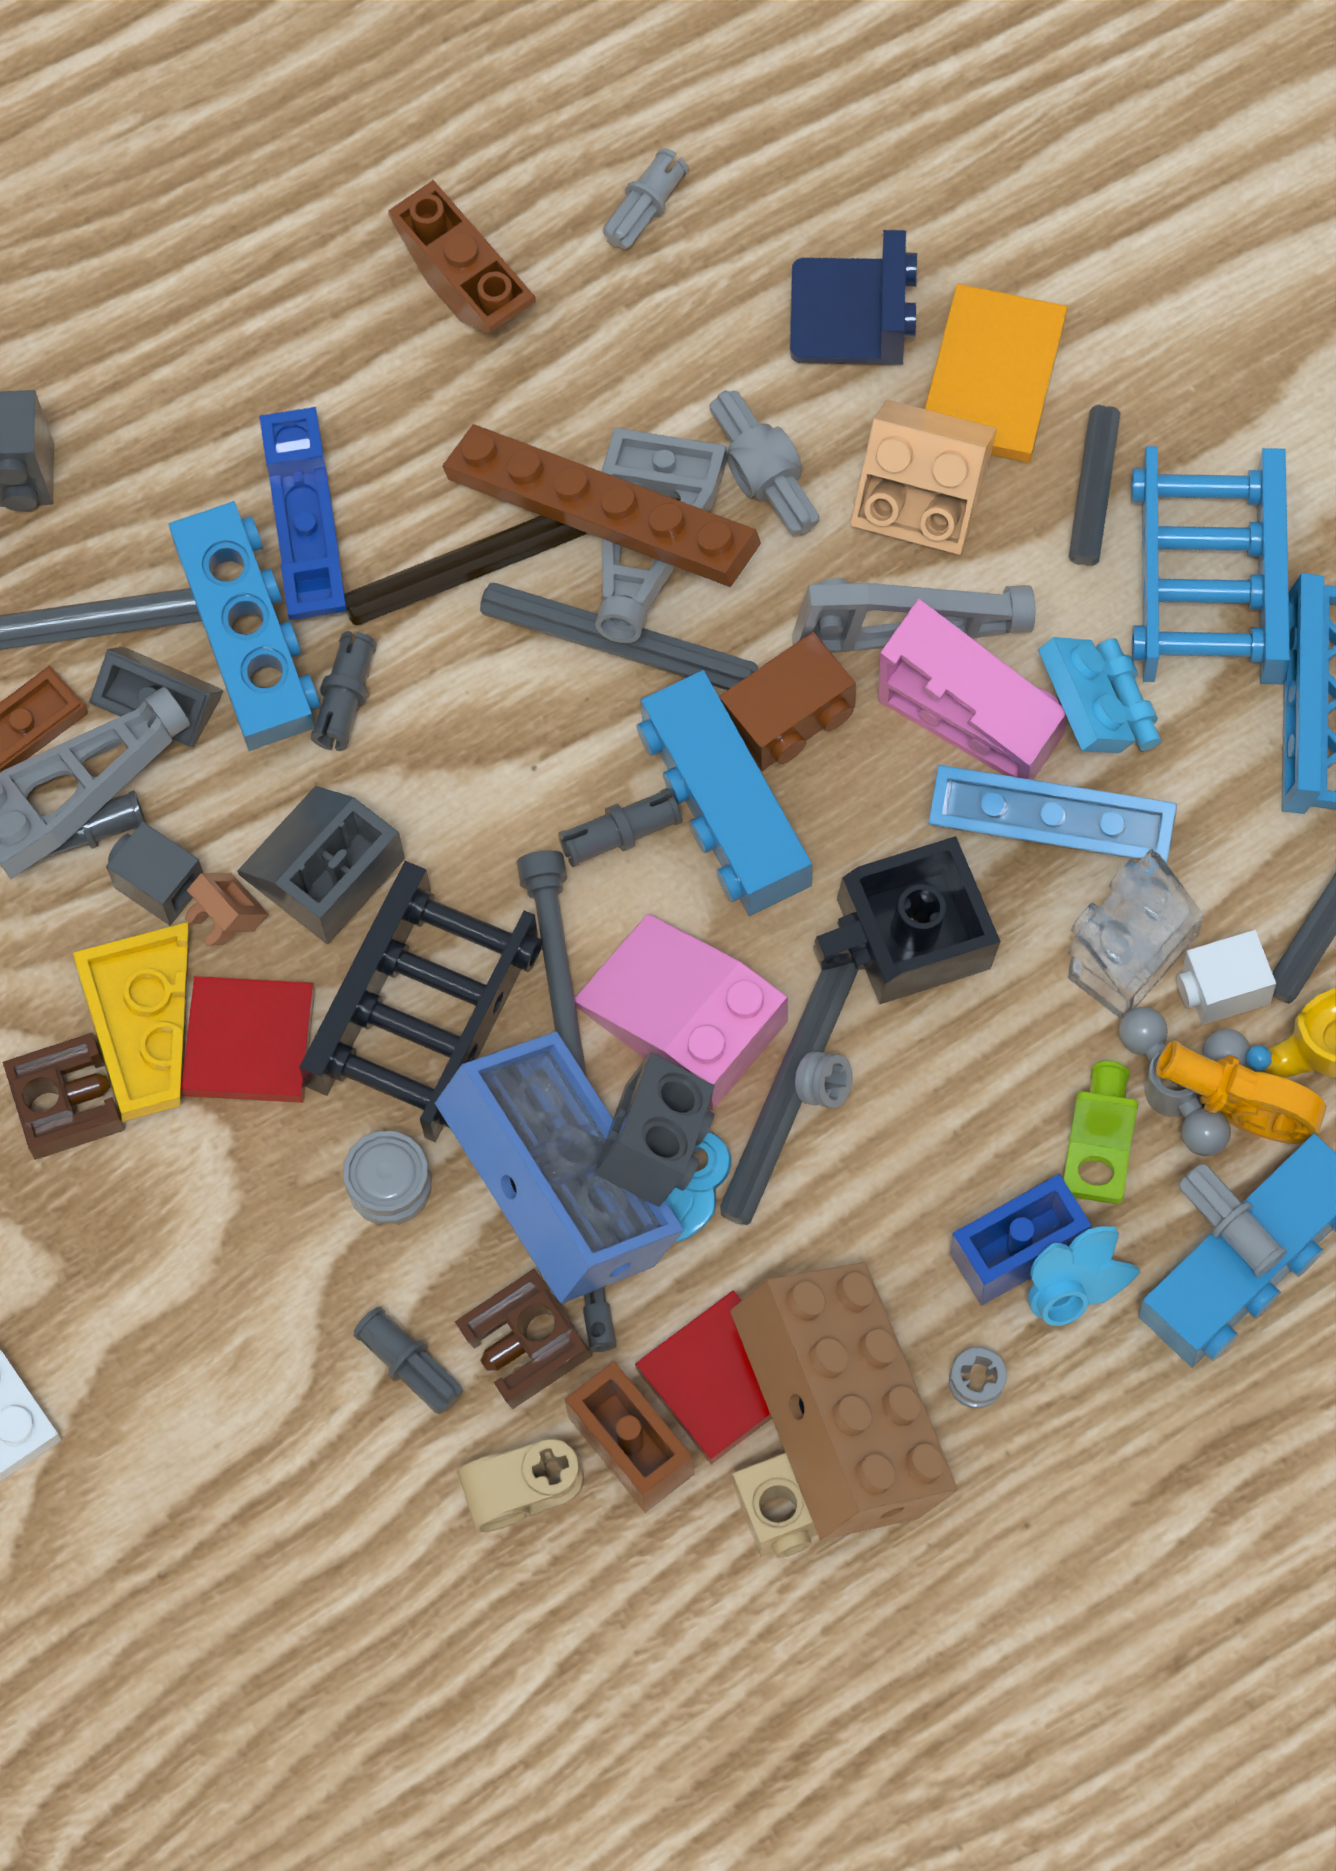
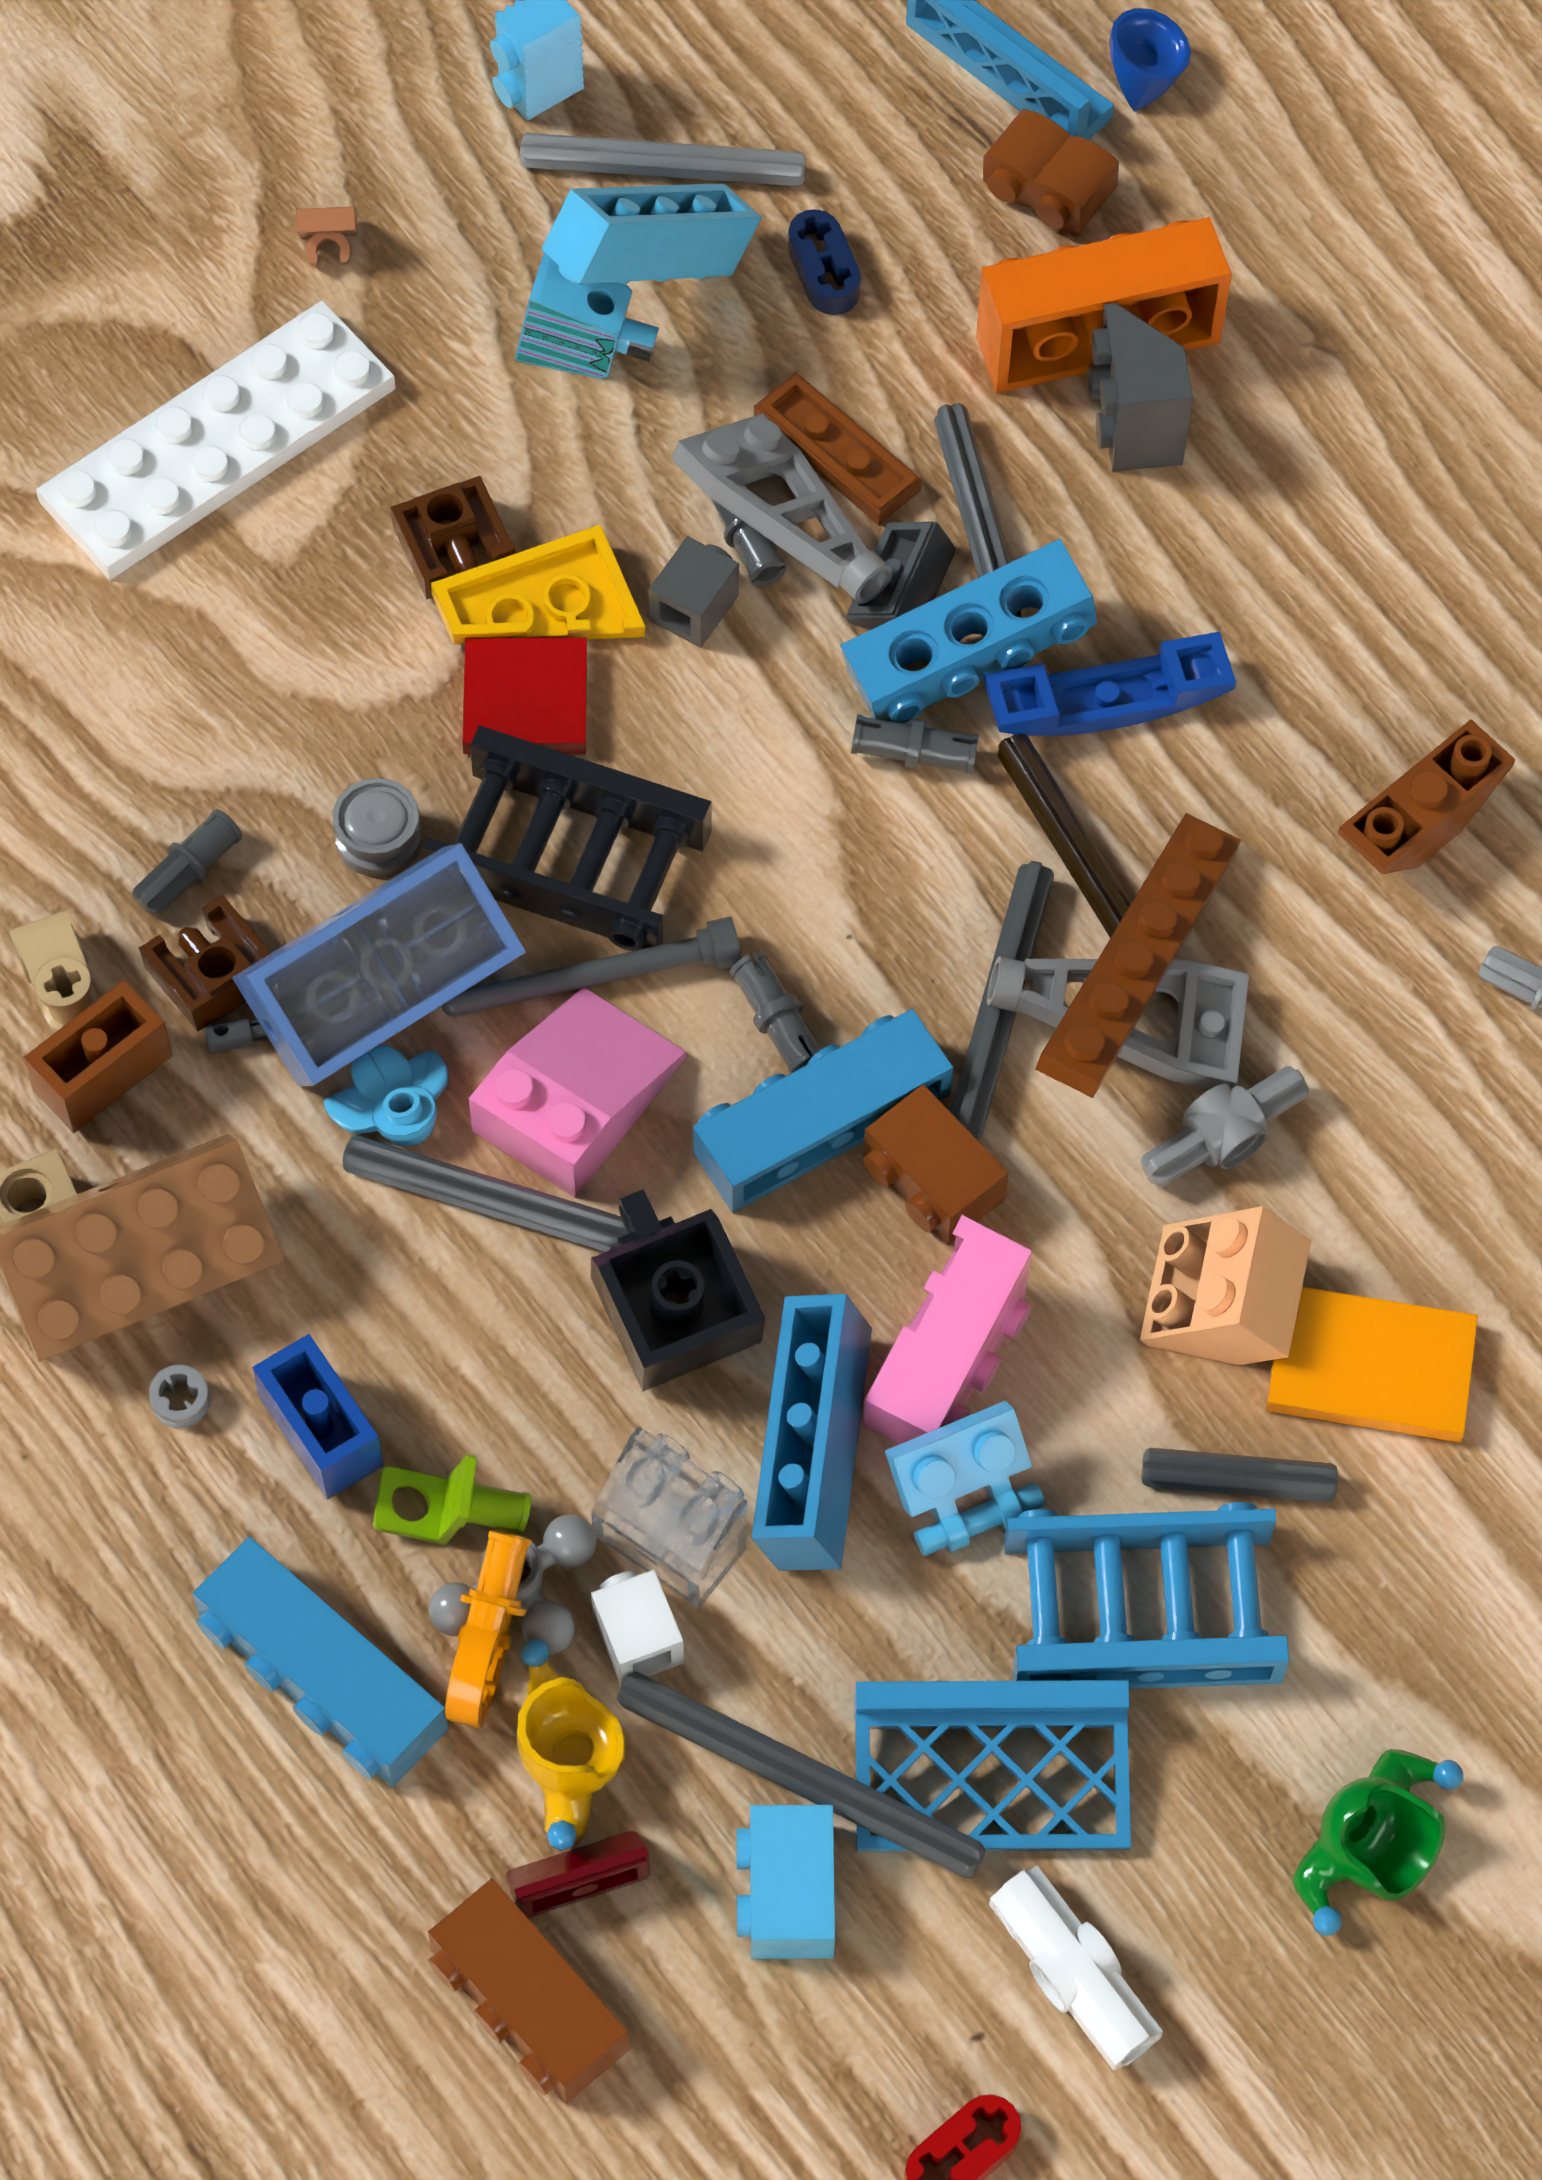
camera: 80 degrees right, 5 degrees down
(226, 903) = (665, 656): nougat tile -> none
(325, 861) = (712, 738): dark grey slope -> none
(656, 1131) = (416, 1031): dark grey brick -> none
(708, 1381) = (167, 1123): red tile -> none
(823, 1079) = (505, 1209): light grey bush -> none
(838, 608) = (1029, 1200): light grey plate -> none
(853, 306) = (1432, 1206): dark blue bracket -> none
(1077, 1276) = (281, 1476): medium azure plate -> none
(1232, 1220) = (332, 1615): light grey axle -> none

